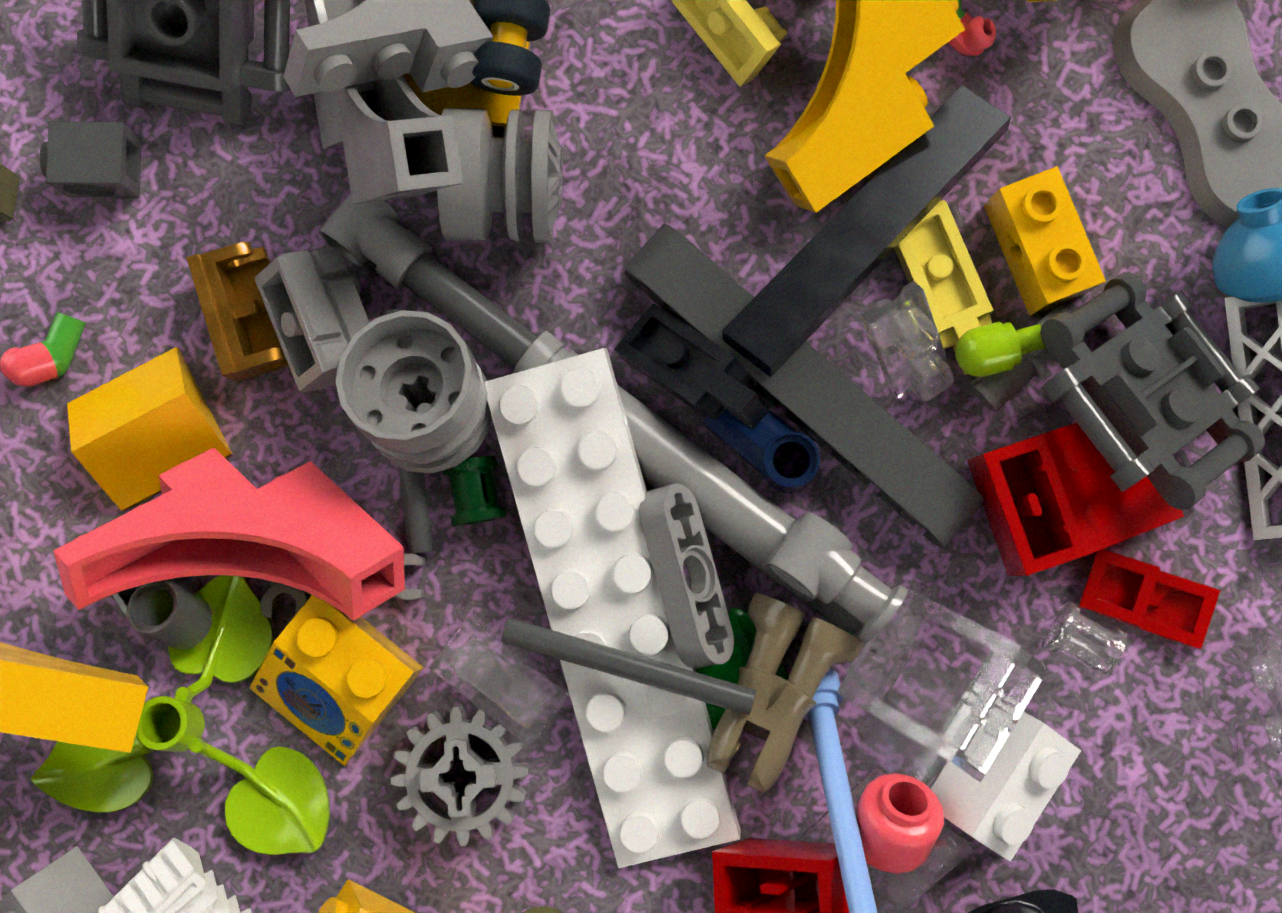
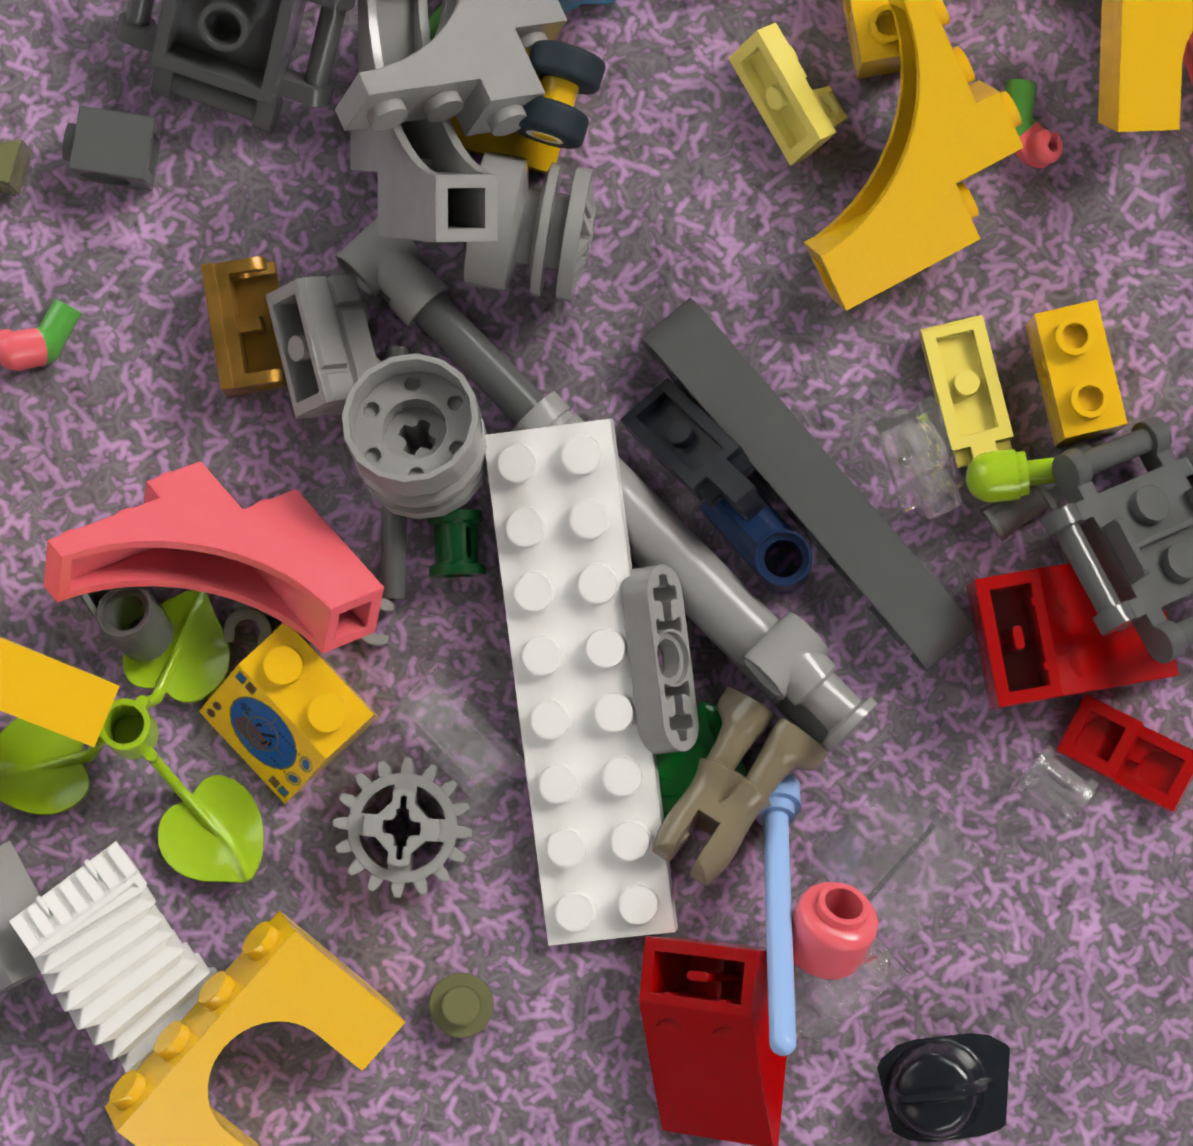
camera: 10 degrees right, 0 degrees up
(142, 428) = (128, 430): yellow slope -> none
(629, 666) = (589, 739): dark grey bar -> none
(864, 232) = (895, 335): black tile -> none
(985, 710) = (913, 853): clear window -> none
(1013, 791) = (948, 905): white slope -> none

